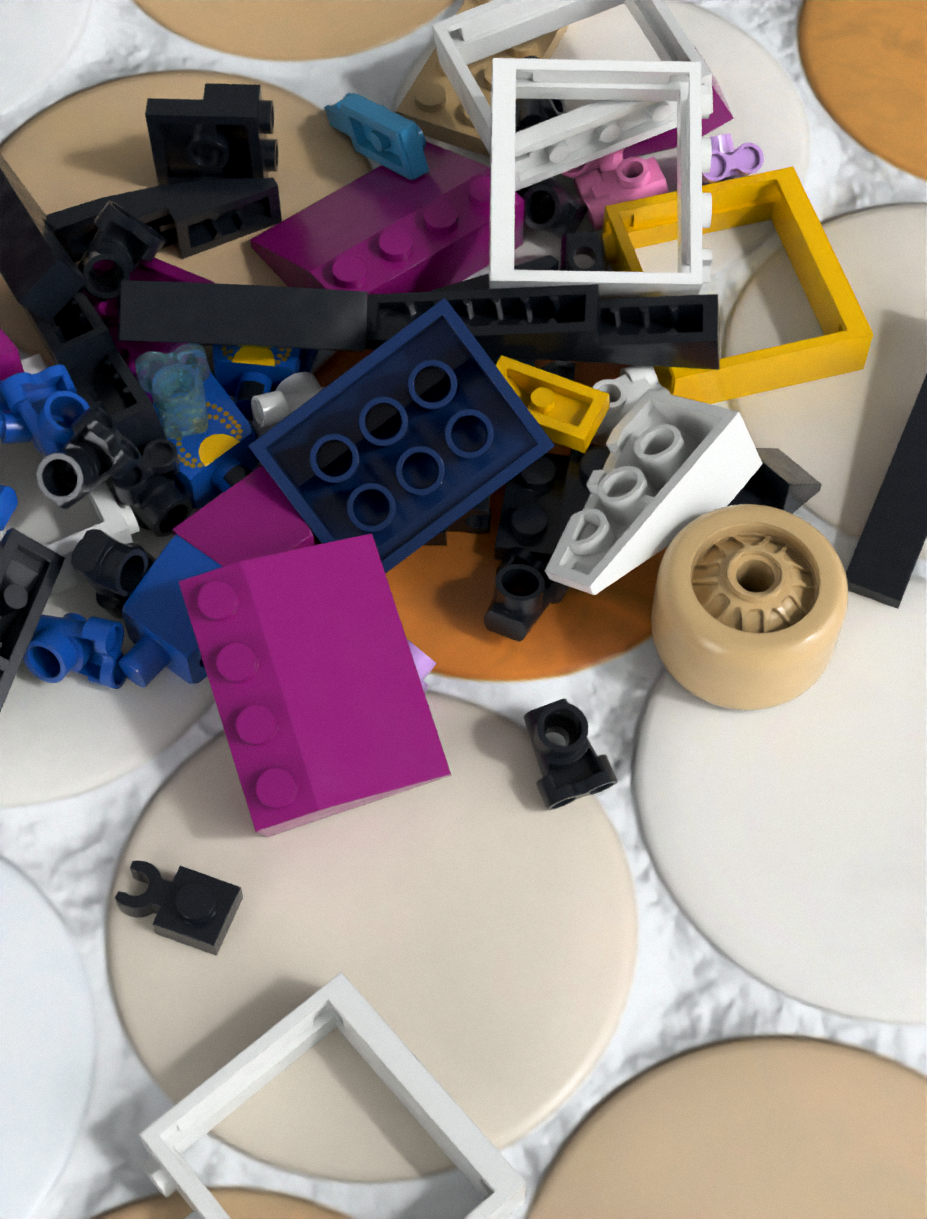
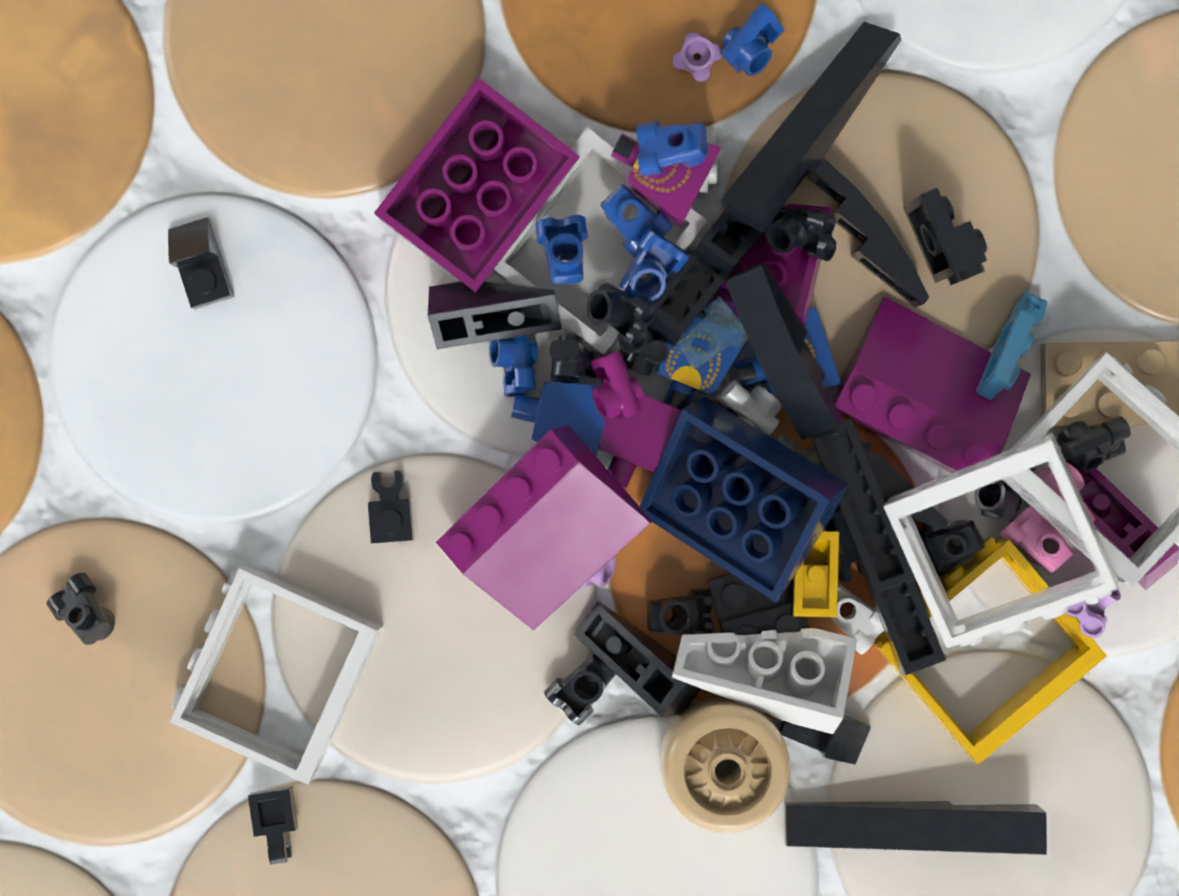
camera: 60 degrees right, 30 degrees up
(181, 518) = (618, 392): none -> magenta plate
(559, 662) = (636, 660): none -> black slope

